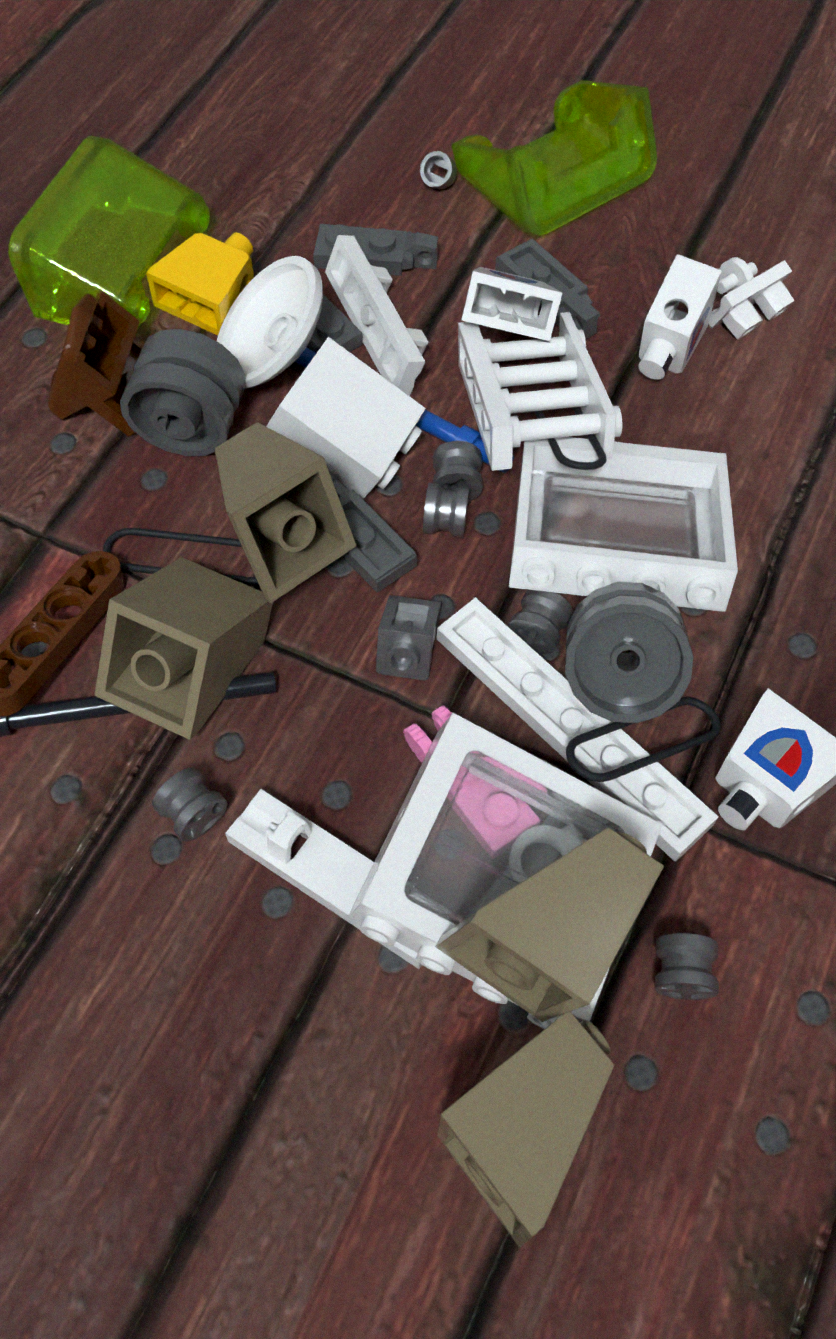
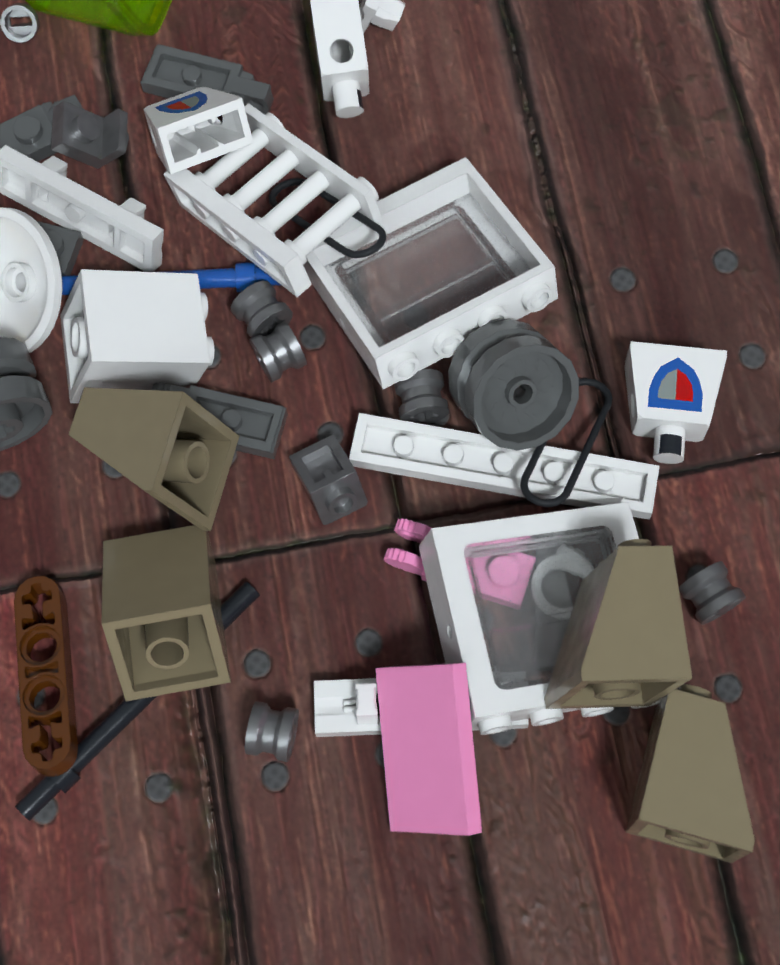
camera: 30 degrees left, 10 degrees up
(175, 536) = (76, 518): black piece -> none
(304, 911) = (428, 749): none -> bright pink tile
(423, 268) = (89, 136): none -> flat silver bracket

